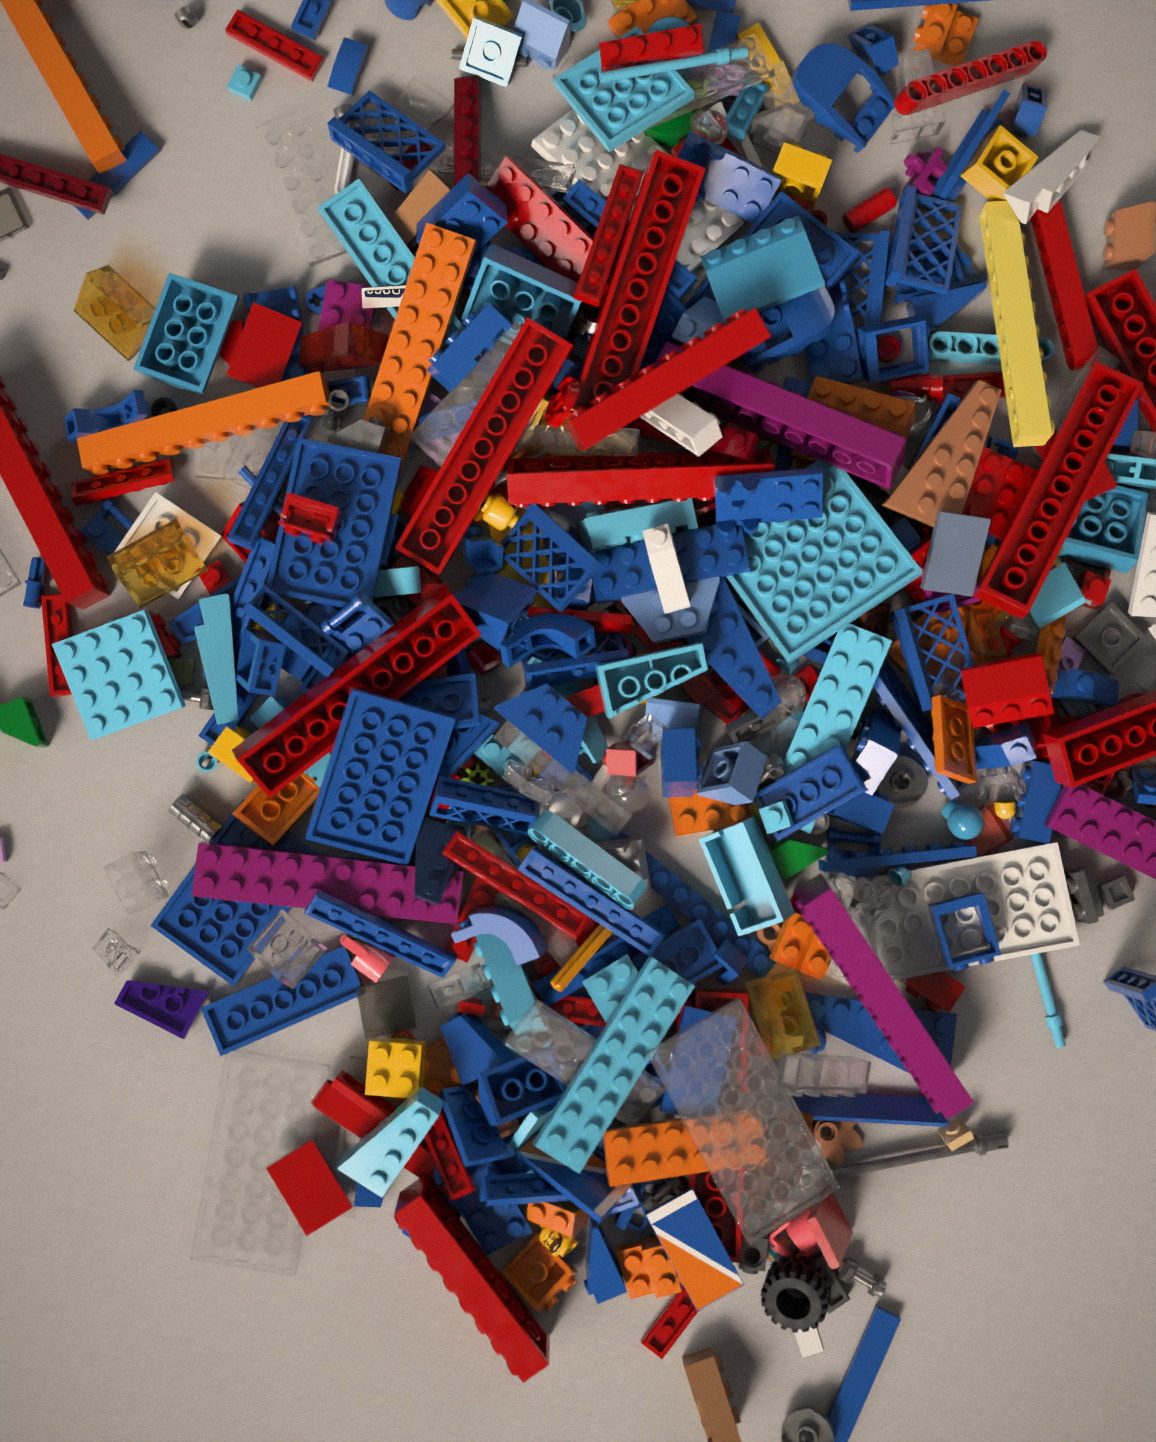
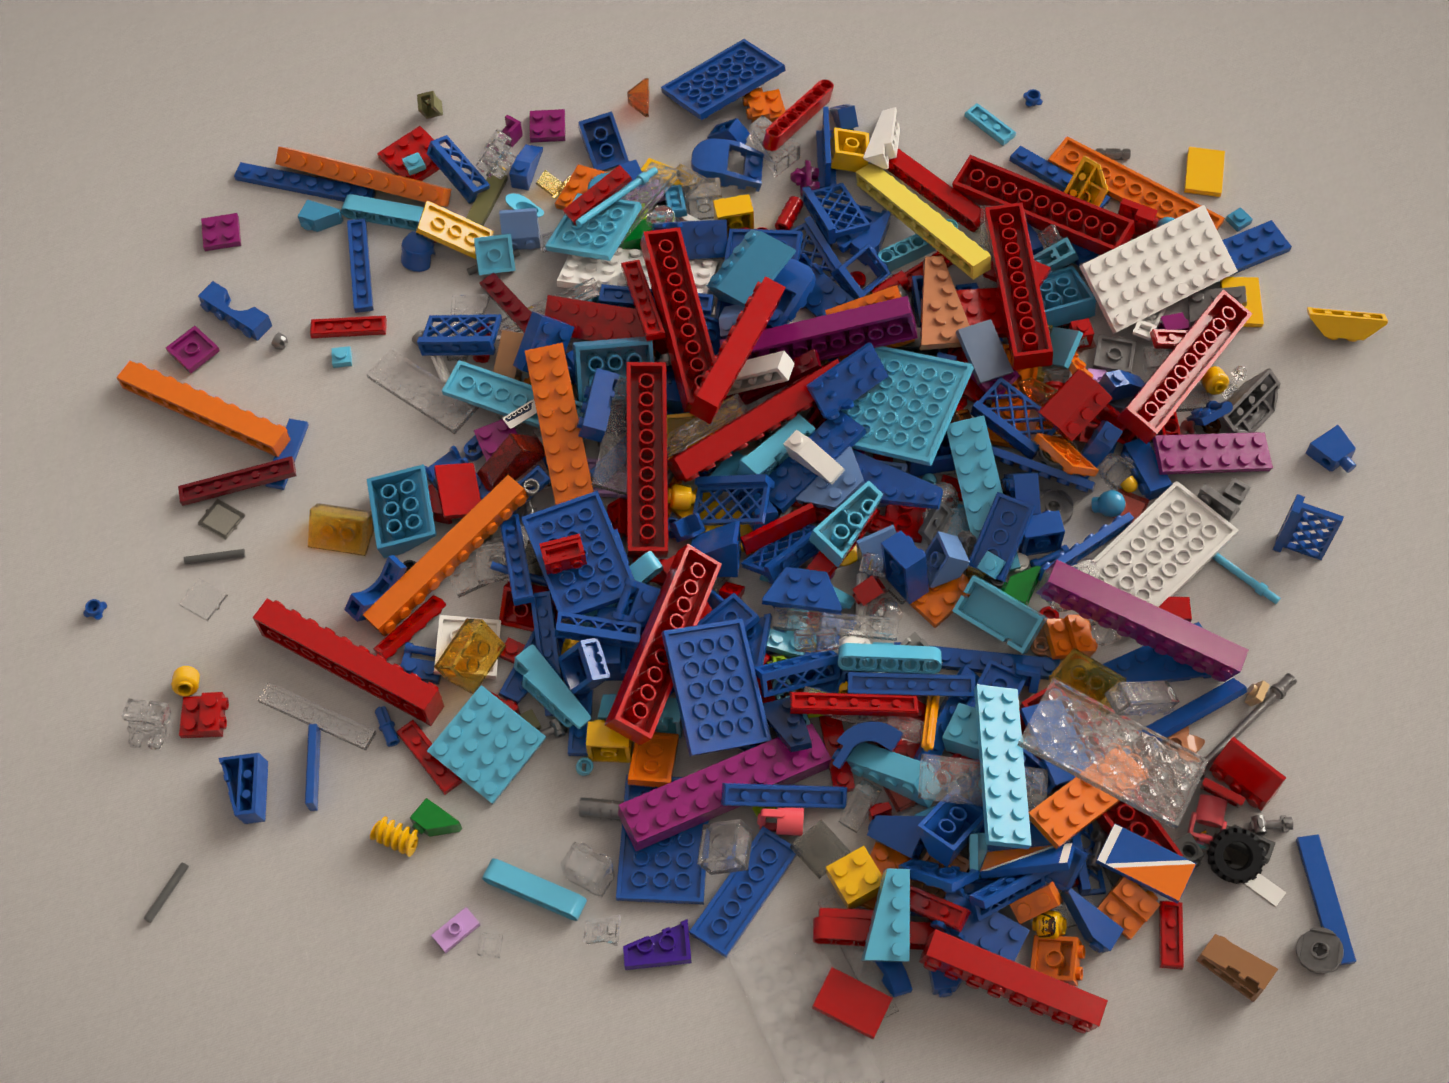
camera: 30 degrees left, 25 degrees down
(77, 862) = (534, 889): none -> medium azure beam
(347, 65) = (405, 312): blue slope -> none
(363, 435) = (561, 493): flat silver slope -> none
(546, 632) = (765, 541): blue arch -> none
(562, 403) = (680, 401): red tile -> none
(873, 1217) = (1247, 774): none -> red slope
(899, 875) = (1091, 554): medium azure hinge -> none
(955, 904) = (1158, 540): blue window -> none
(1130, 236) = (953, 144): nougat slope -> none

